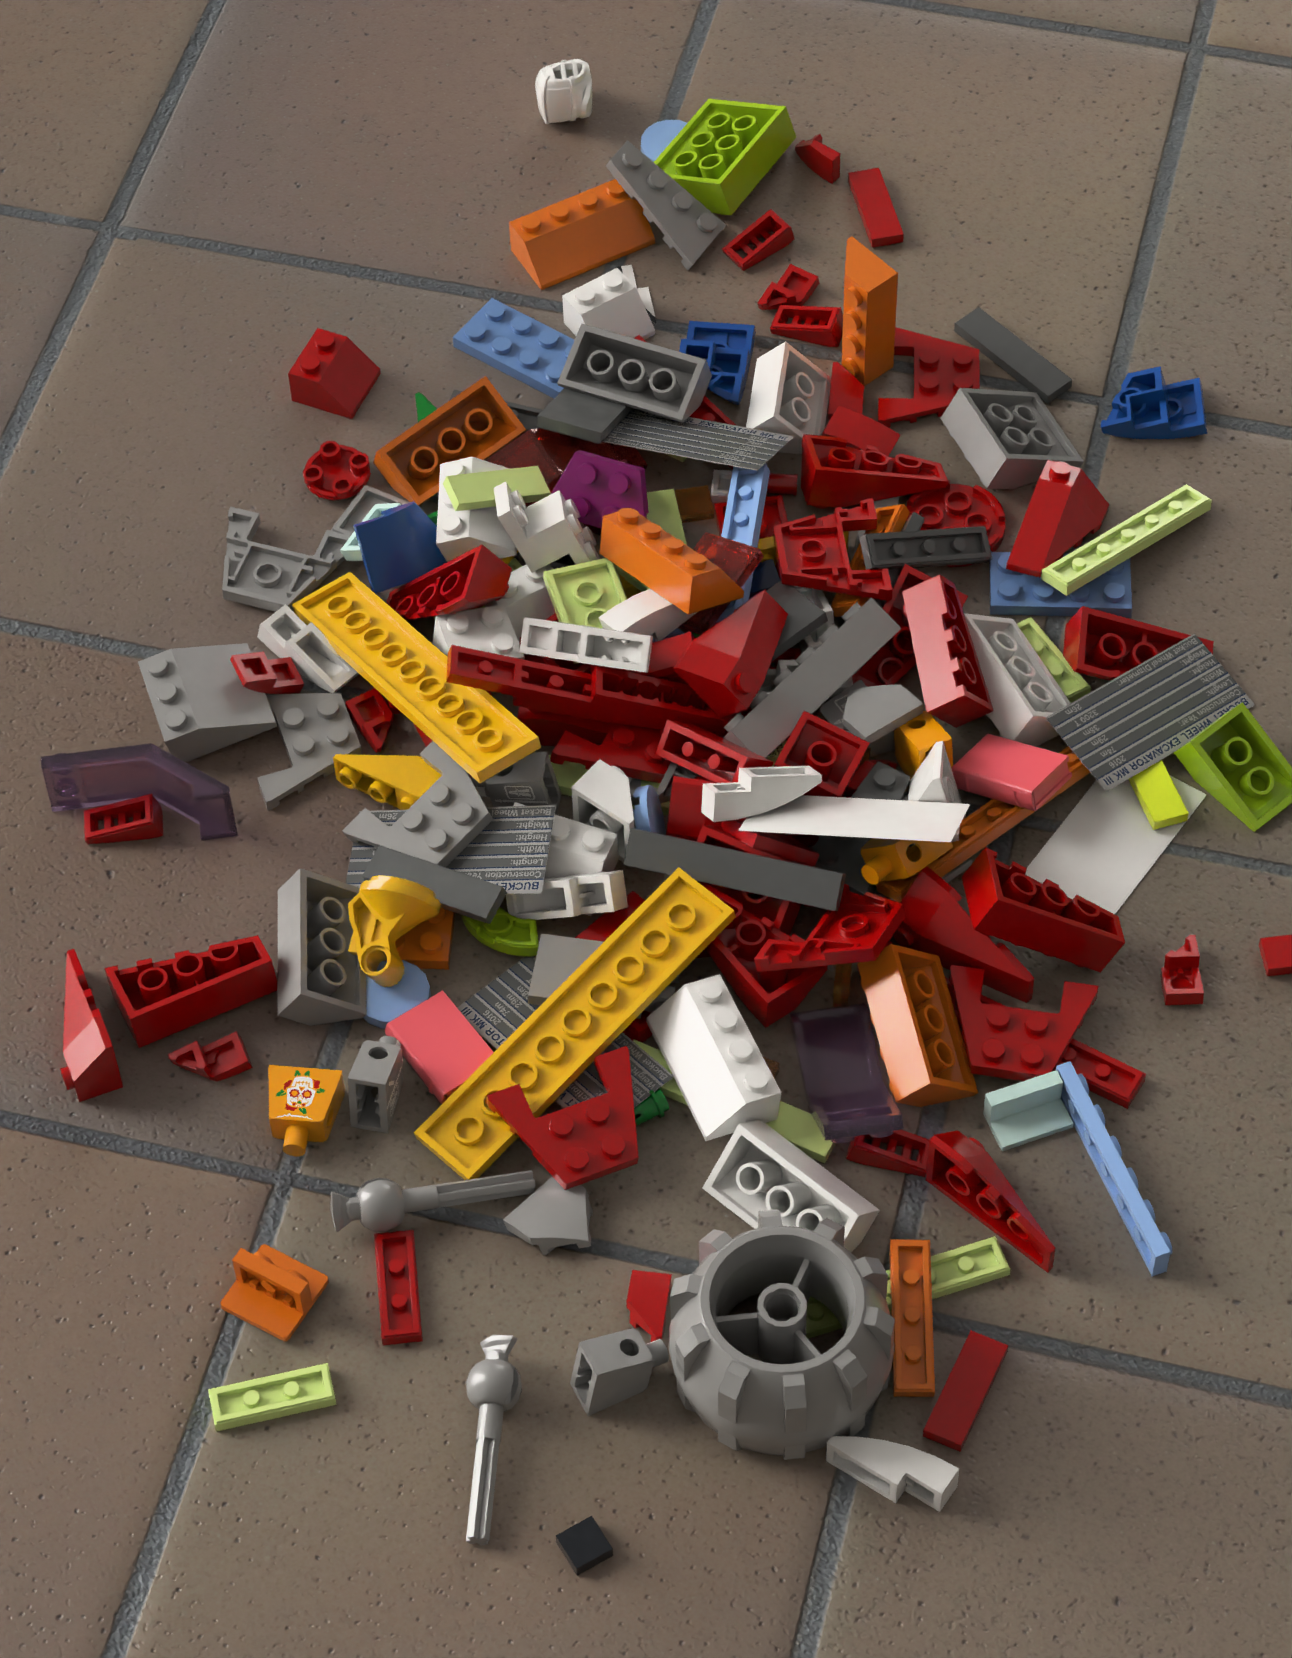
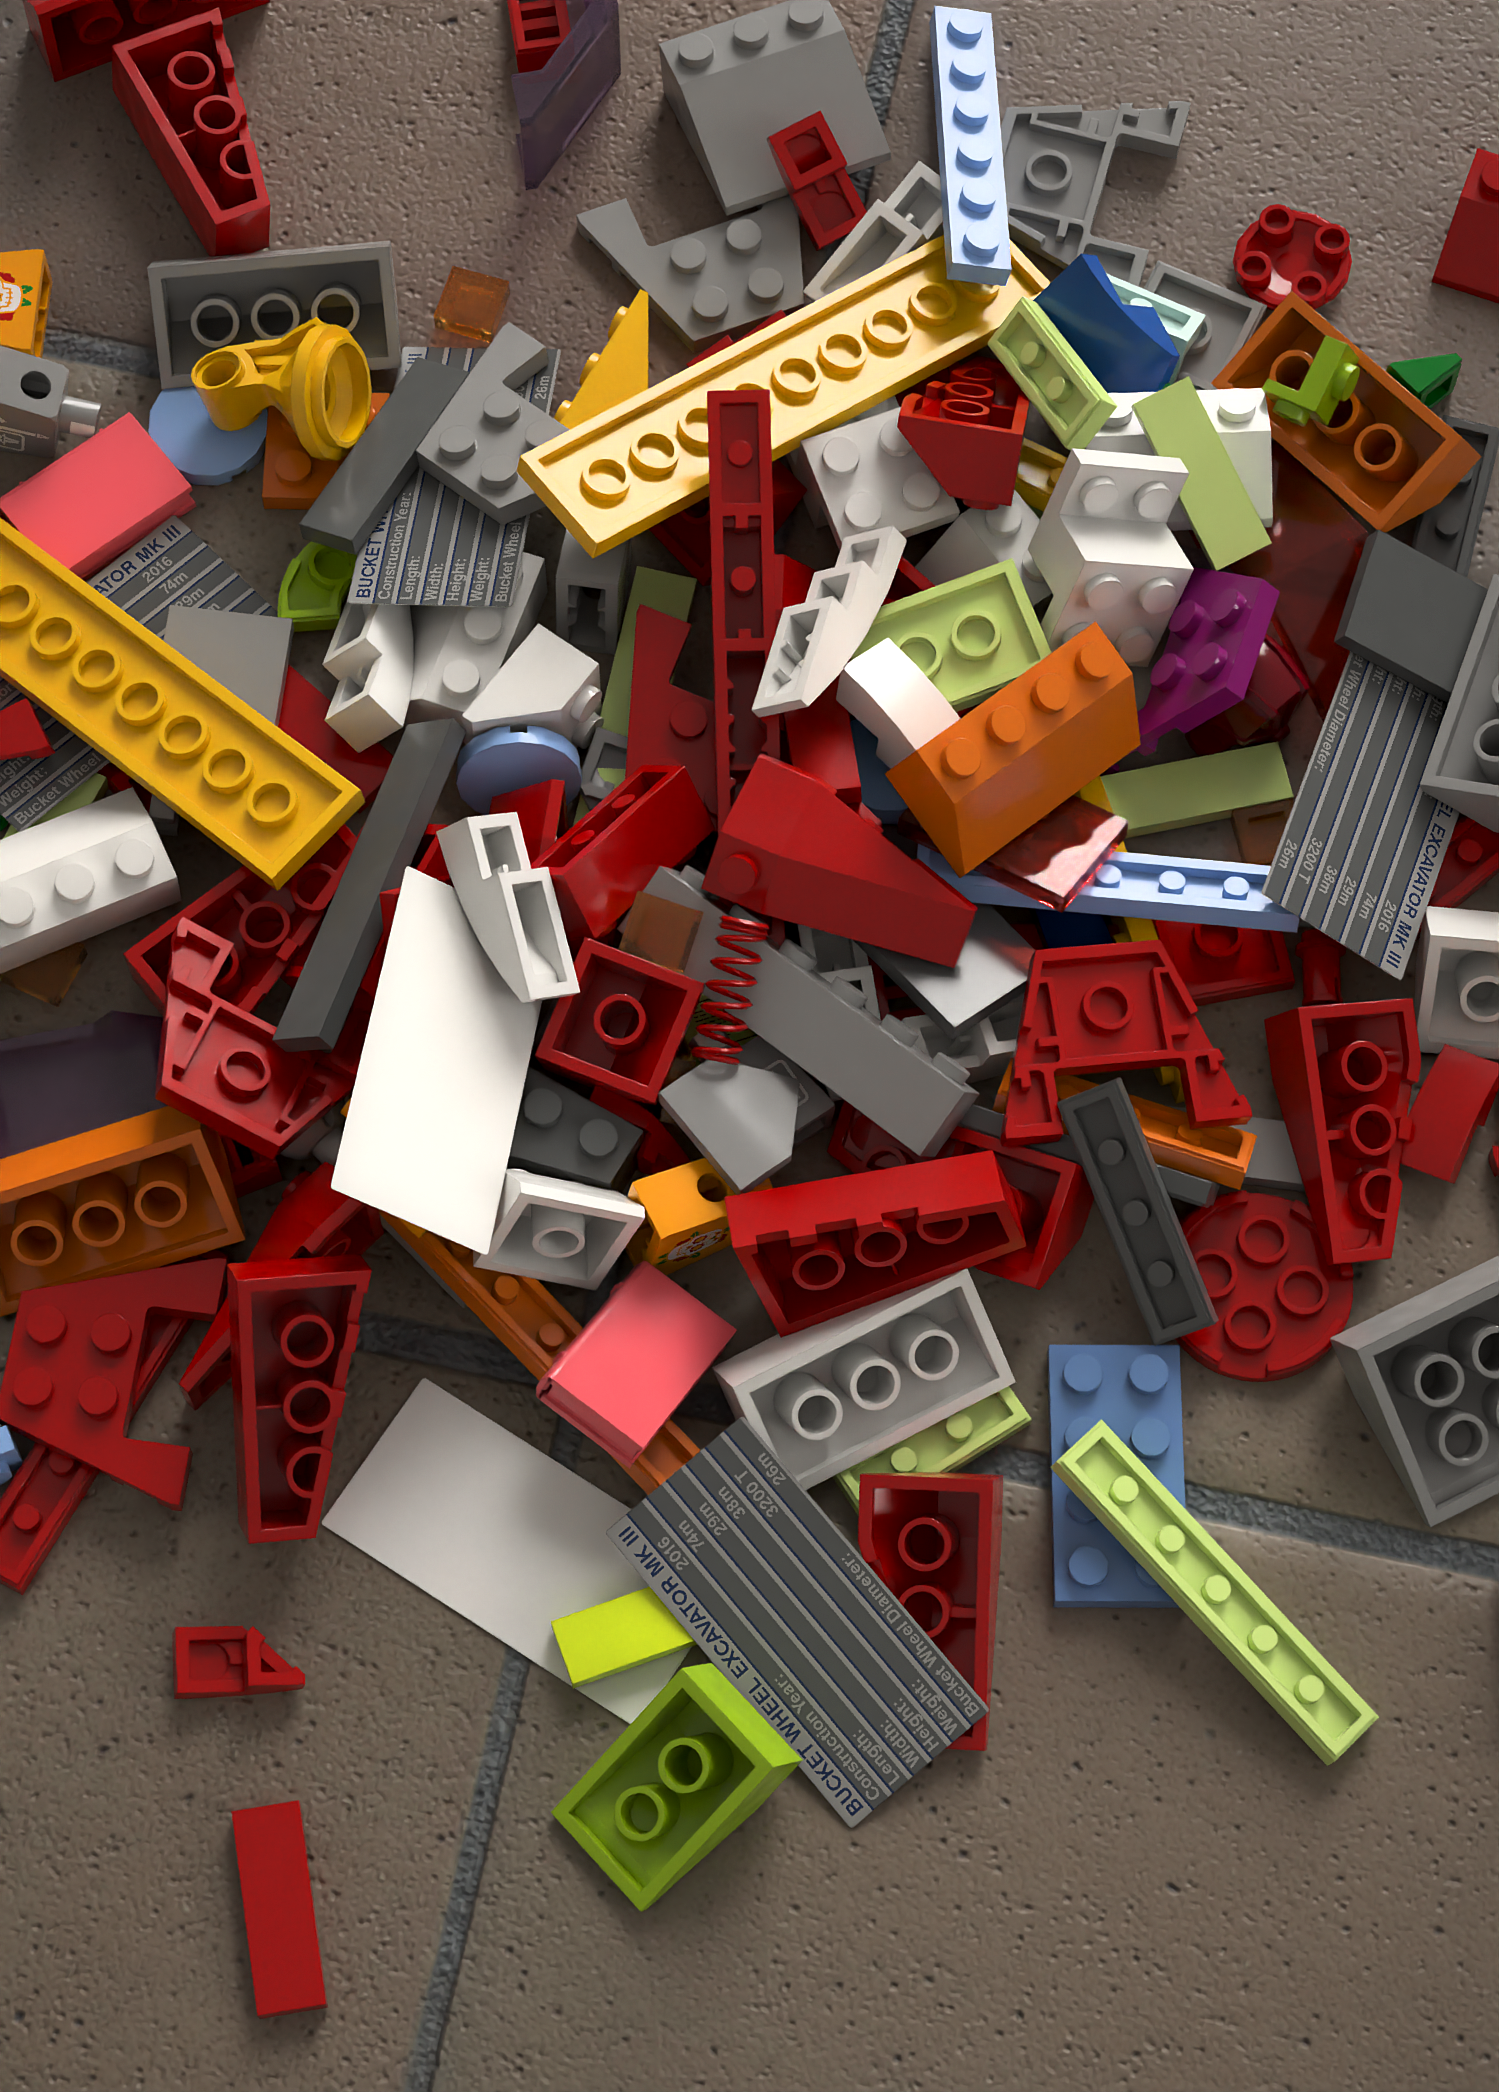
camera: 85 degrees right, 15 degrees up
(216, 1060) = (92, 194): red slope -> none
(251, 601) = (969, 147): none -> plate
(320, 857) = (472, 304): none -> clear orange tile
(423, 554) = (1051, 375): none -> yellowish green tile
(445, 434) = (1328, 380): none -> lime bracket
(769, 733) = (661, 931): none -> clear orange tile
(776, 683) = (760, 933): none -> red piece
(1057, 518) = (1258, 1463): red wedge -> none

